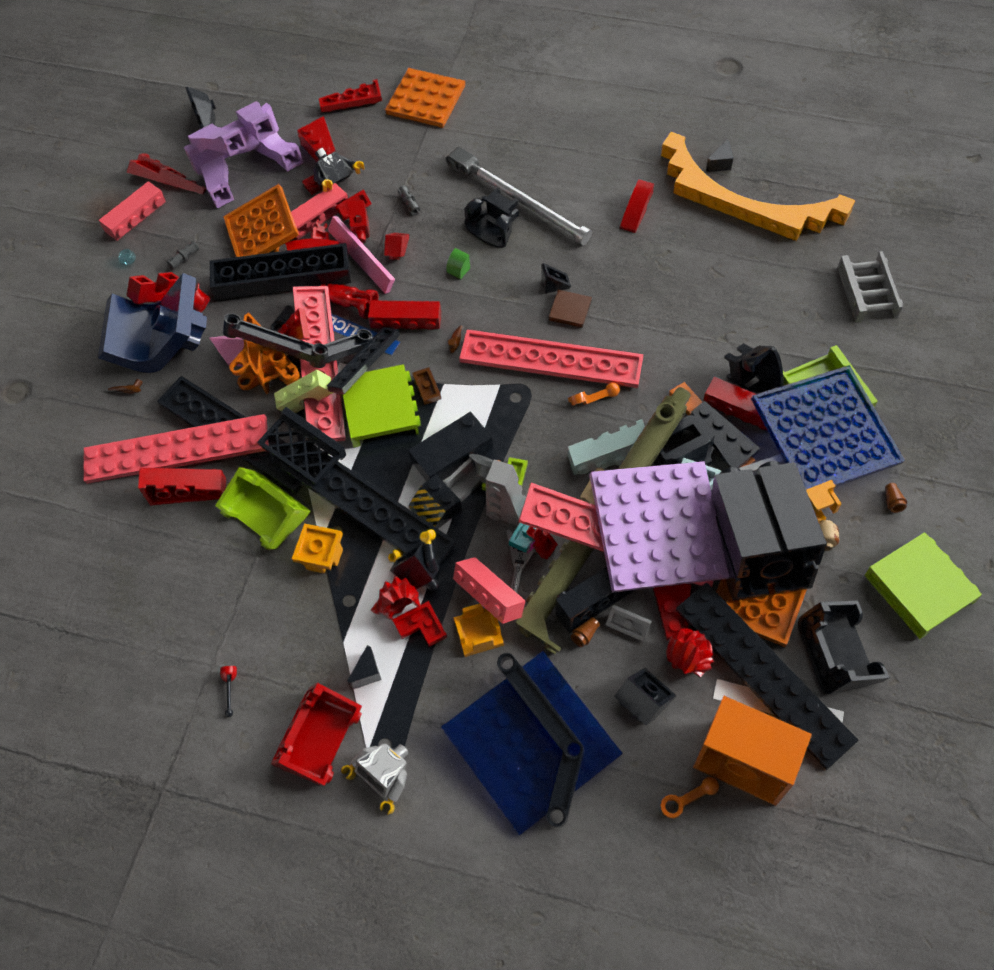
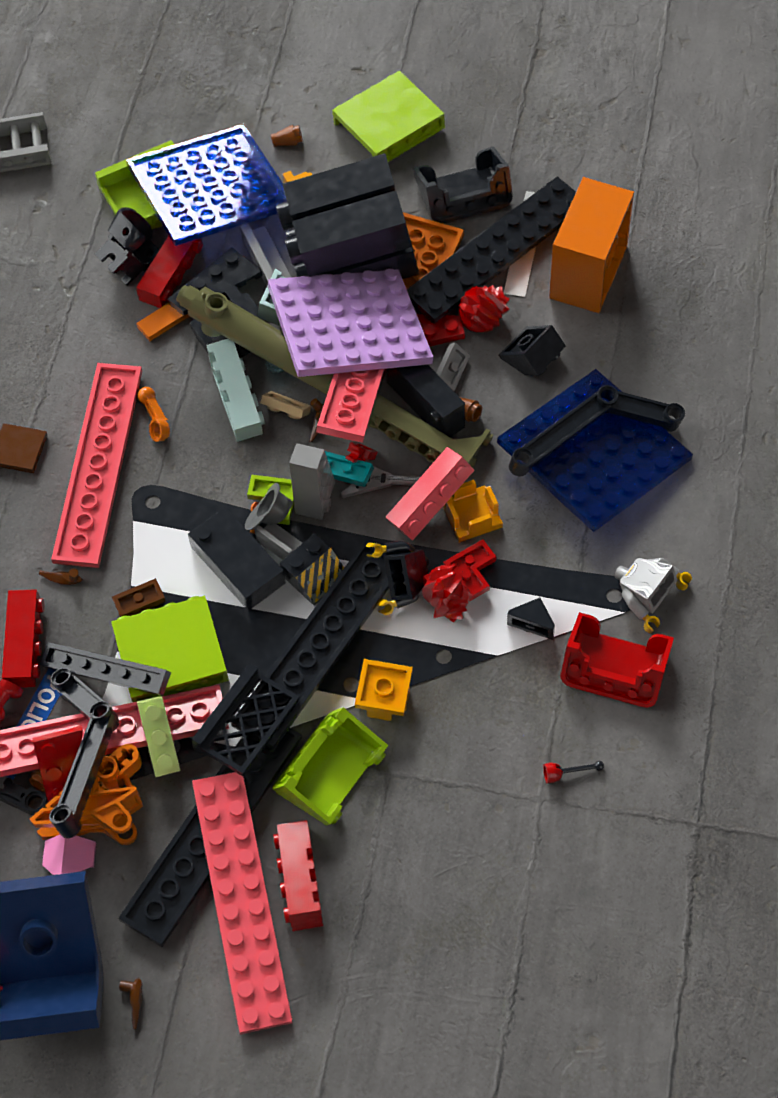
camera: 95 degrees left, 0 degrees up
(709, 786) = (619, 296): orange piece -> none

